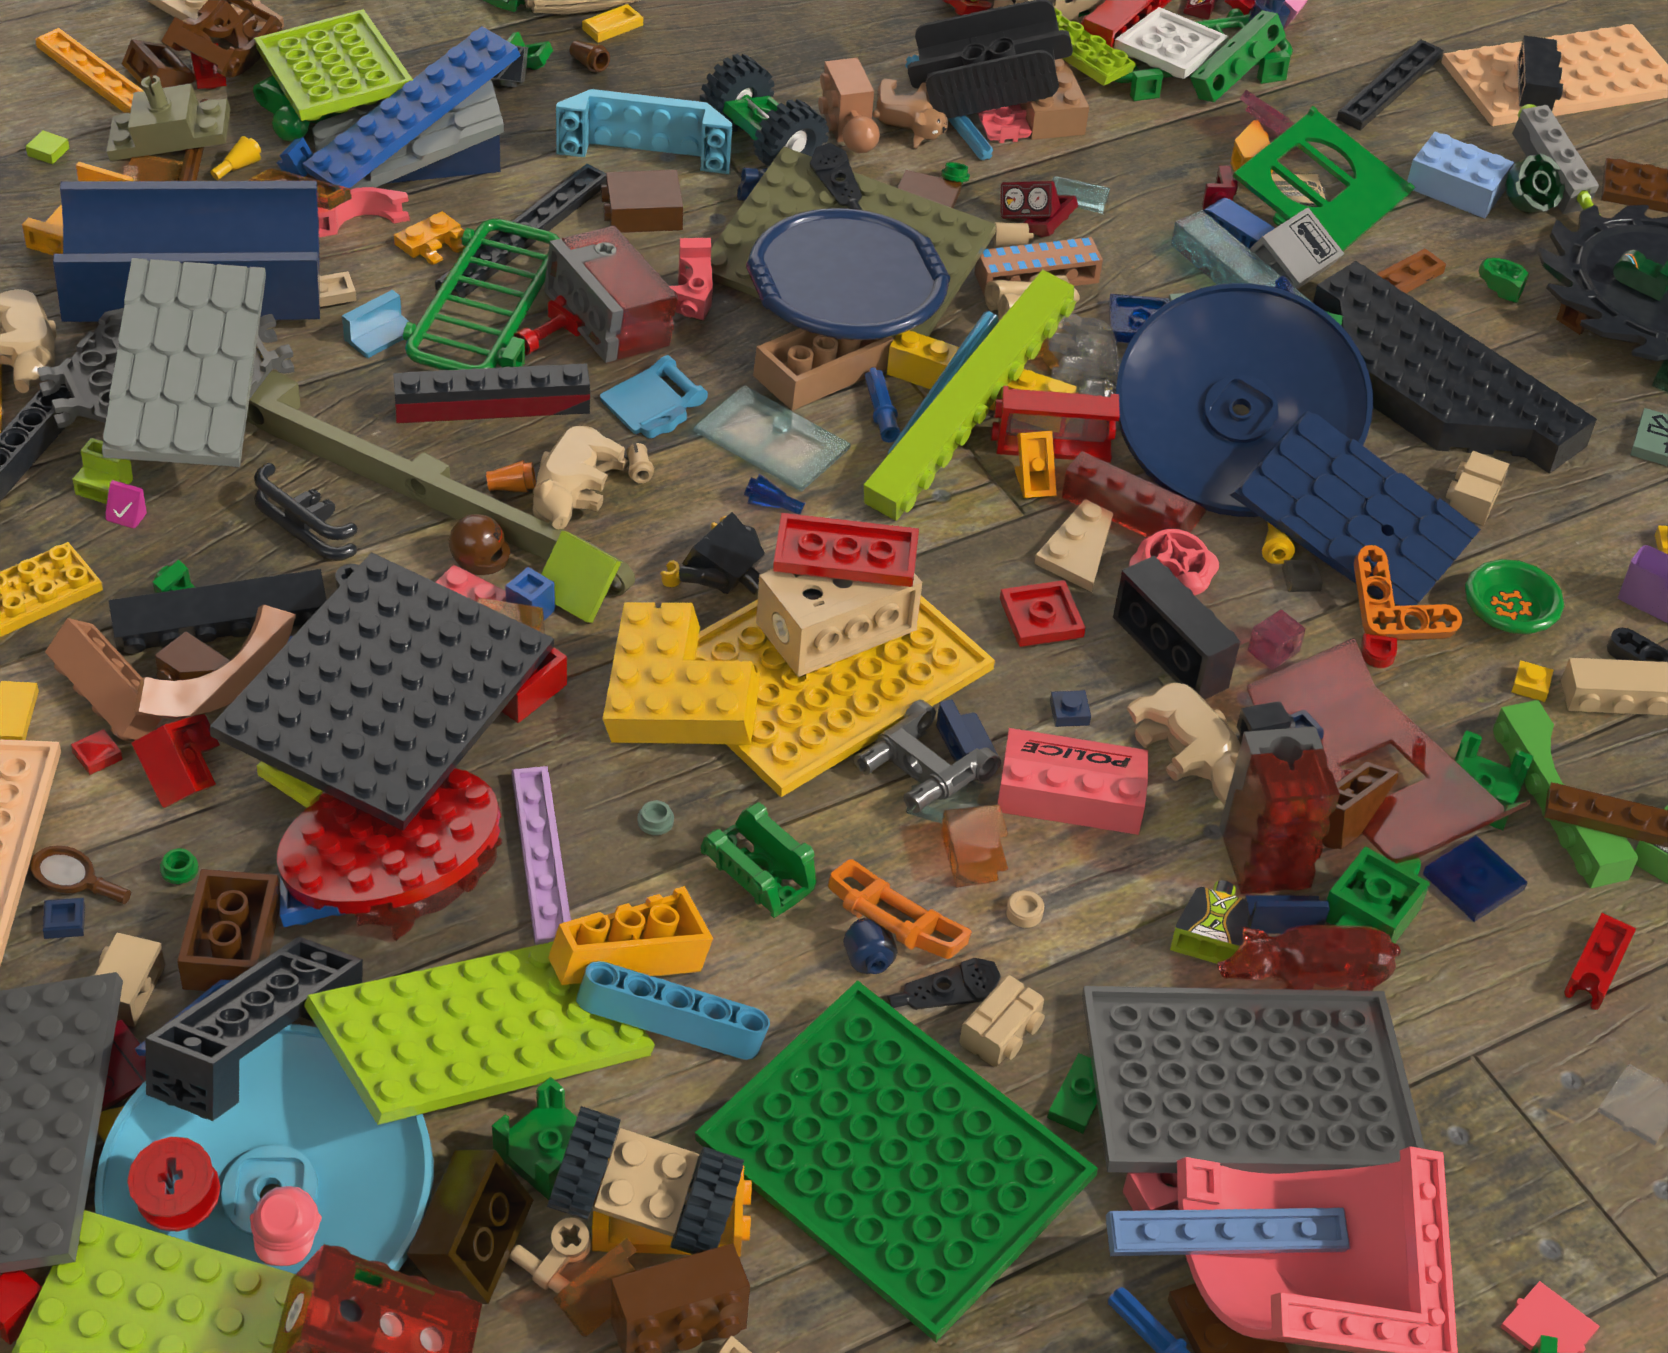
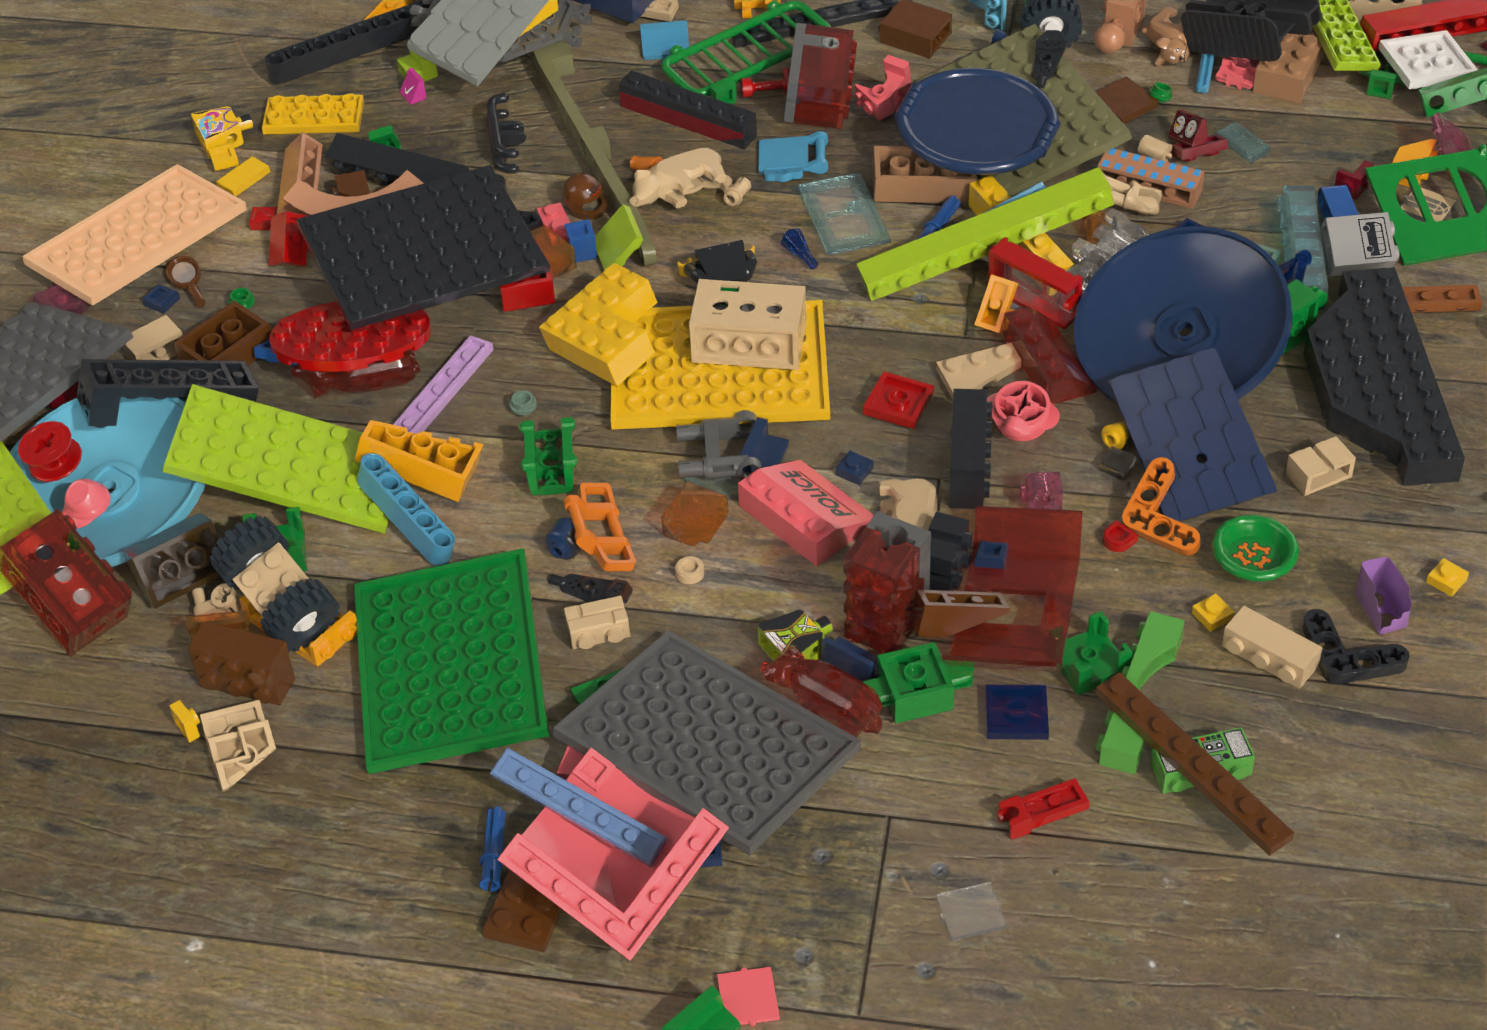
camera: 45 degrees right, 0 degrees up
(846, 550) = (763, 286): red plate -> none

